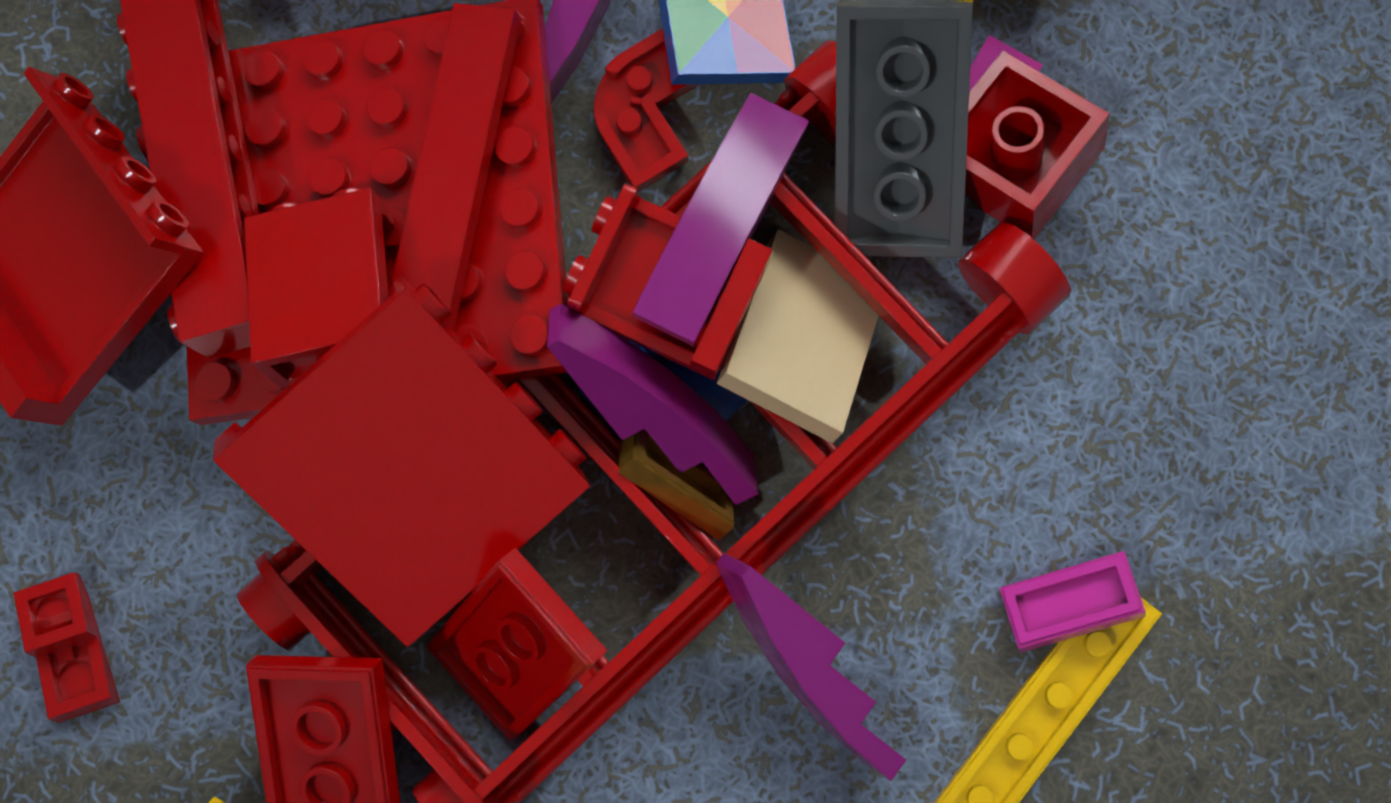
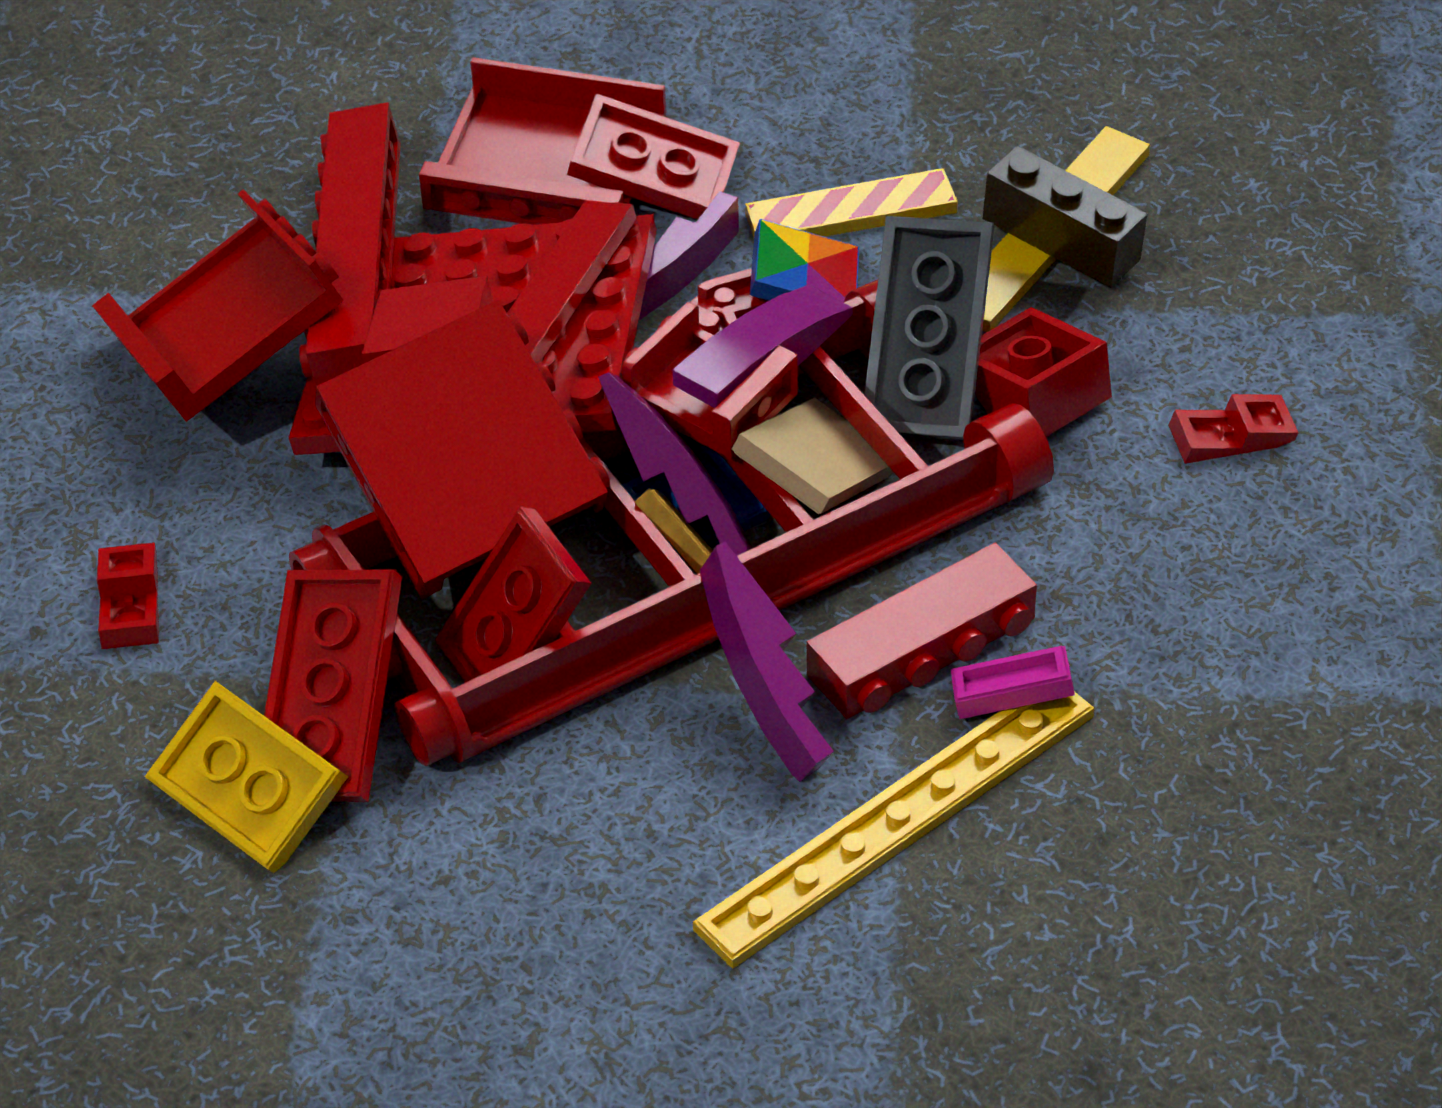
camera: 15 degrees right, 35 degrees down
(964, 548) = (921, 631): none -> brick
(1245, 170) = (1244, 426): none -> red slope

